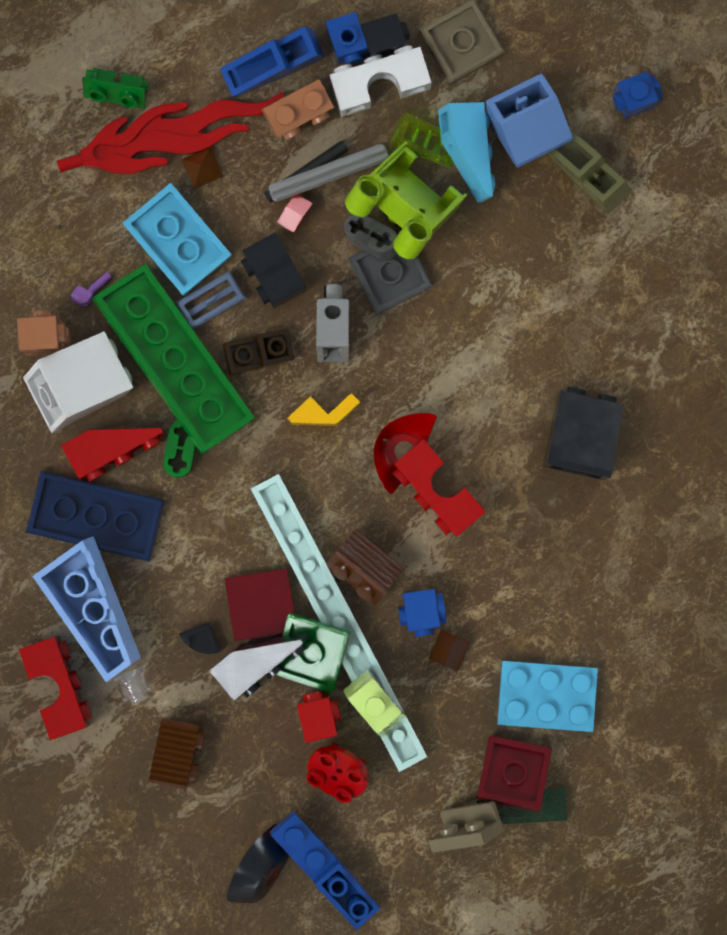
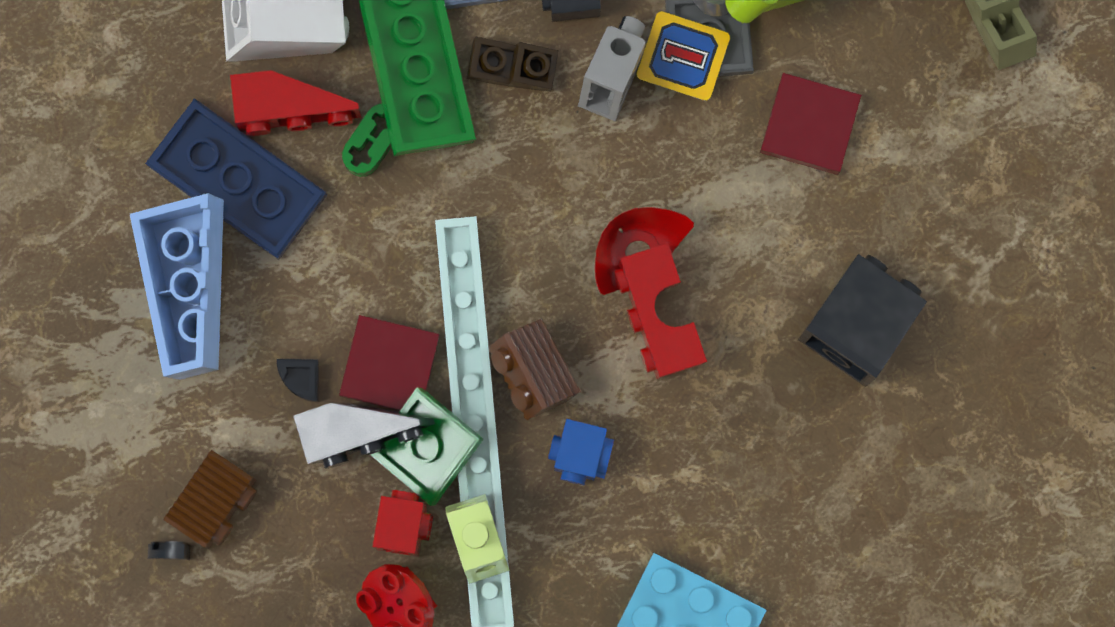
camera: 20 degrees right, 5 degrees down
(51, 660) = (103, 397): red arch -> none
(133, 685) = (195, 397): clear brick -> none
(160, 800) = (169, 550): none -> black tile
(312, 414) = (545, 162): yellow slope -> none
(378, 295) = (683, 55): none -> sticker
(449, 650) = (594, 514): reddish brown slope -> none
(489, 307) = (810, 124): none -> dark red tile

